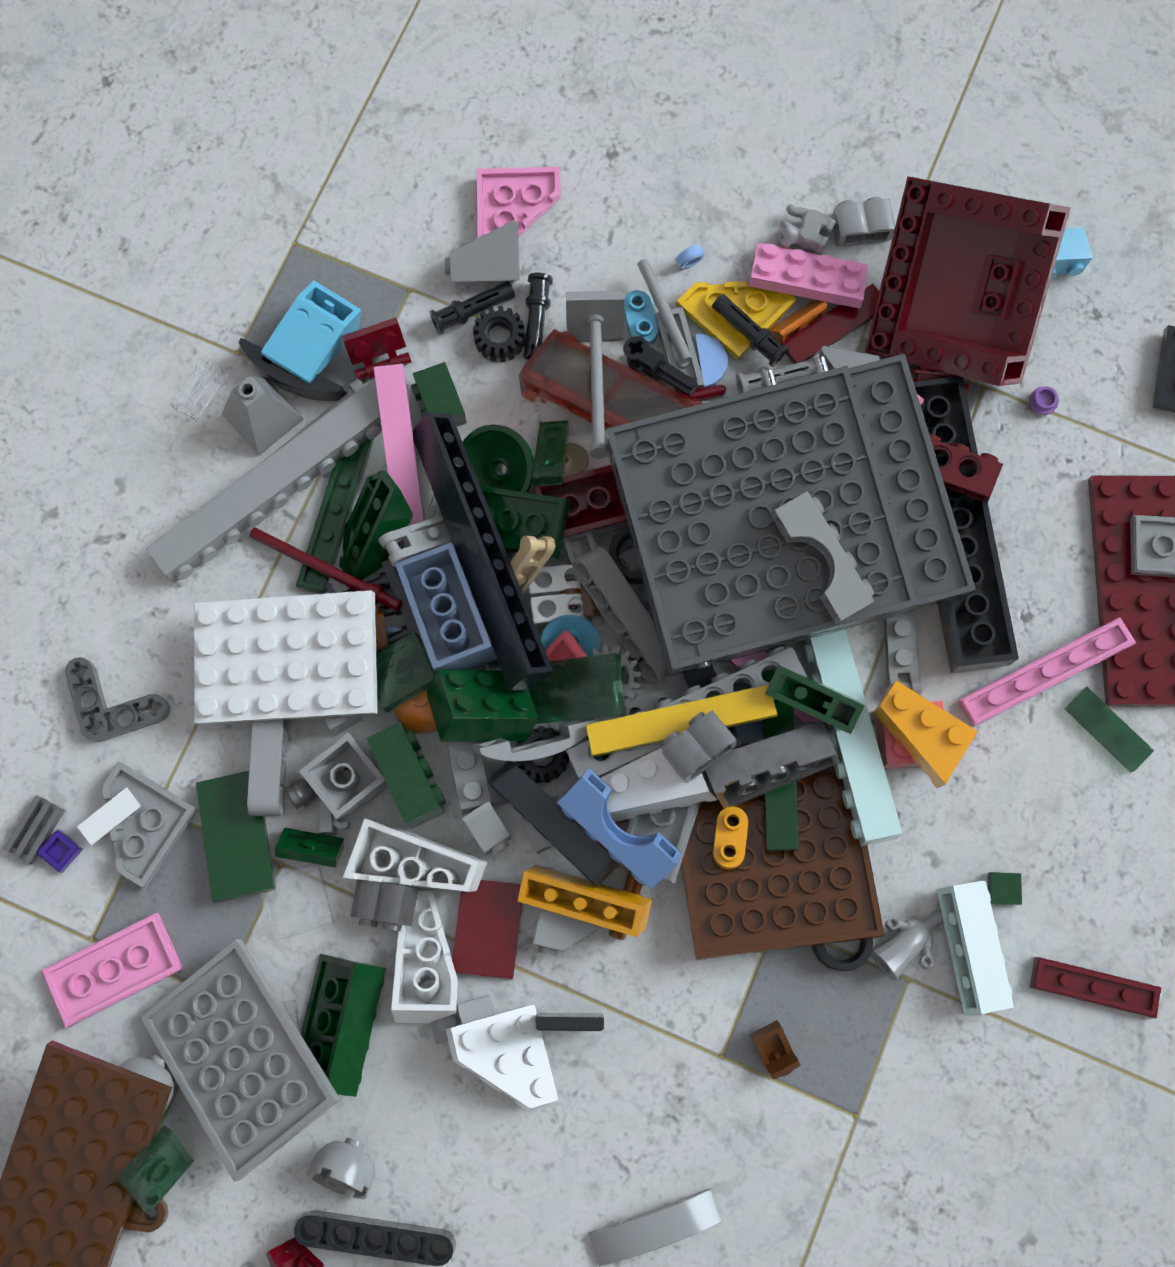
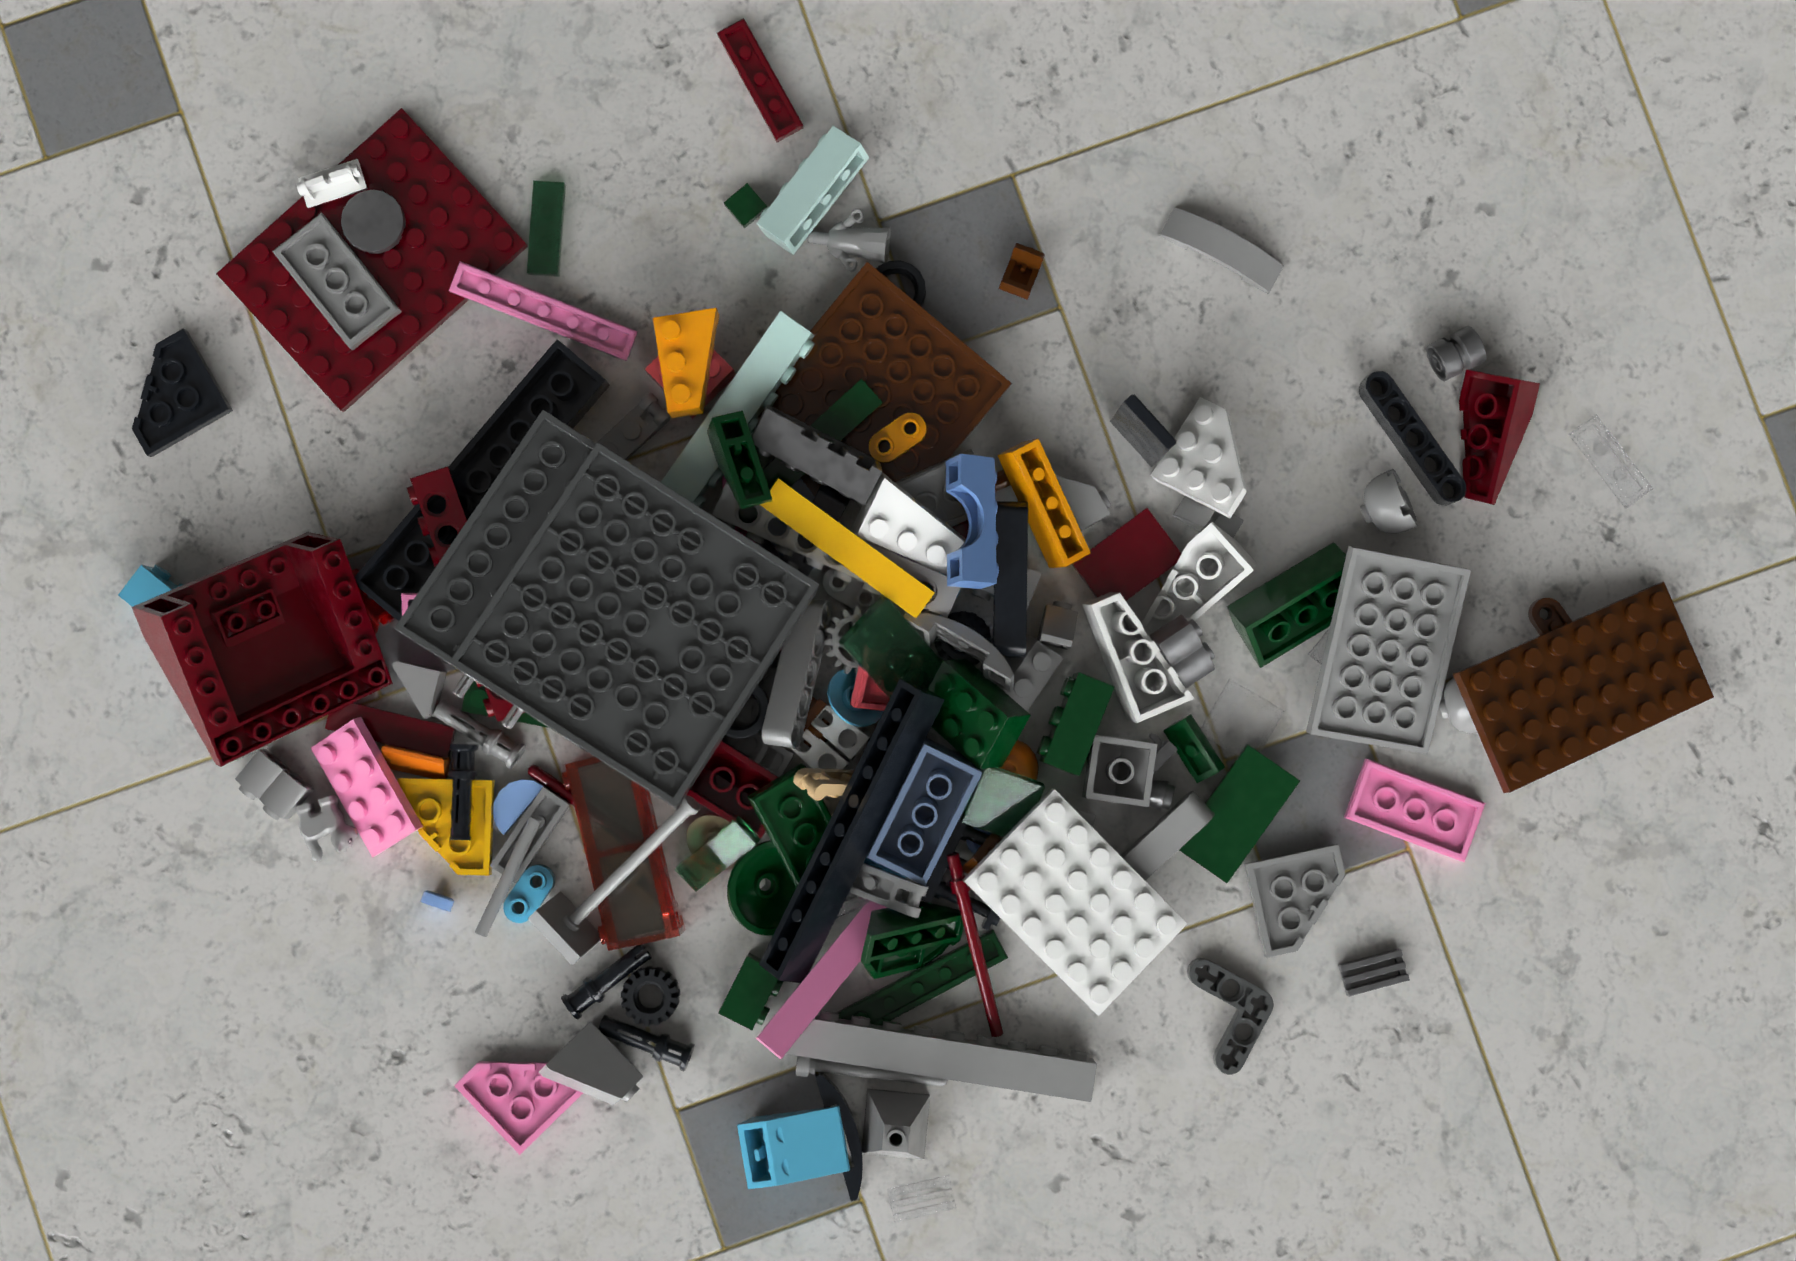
camera: 135 degrees left, 10 degrees up
(59, 851) = (1370, 937): dark purple tile -> none
(108, 816) = (1312, 922): white sticker -> none
(155, 1170) = (1515, 634): clear green tile -> none
(374, 342) = (754, 1087): dark red plate -> none
(653, 364) = (563, 837): black connector -> none
(698, 746) = (858, 514): flat silver brick -> none
(803, 522) = (641, 504): light grey arch -> none
(1044, 400) = (306, 502): medium lavender plate -> none

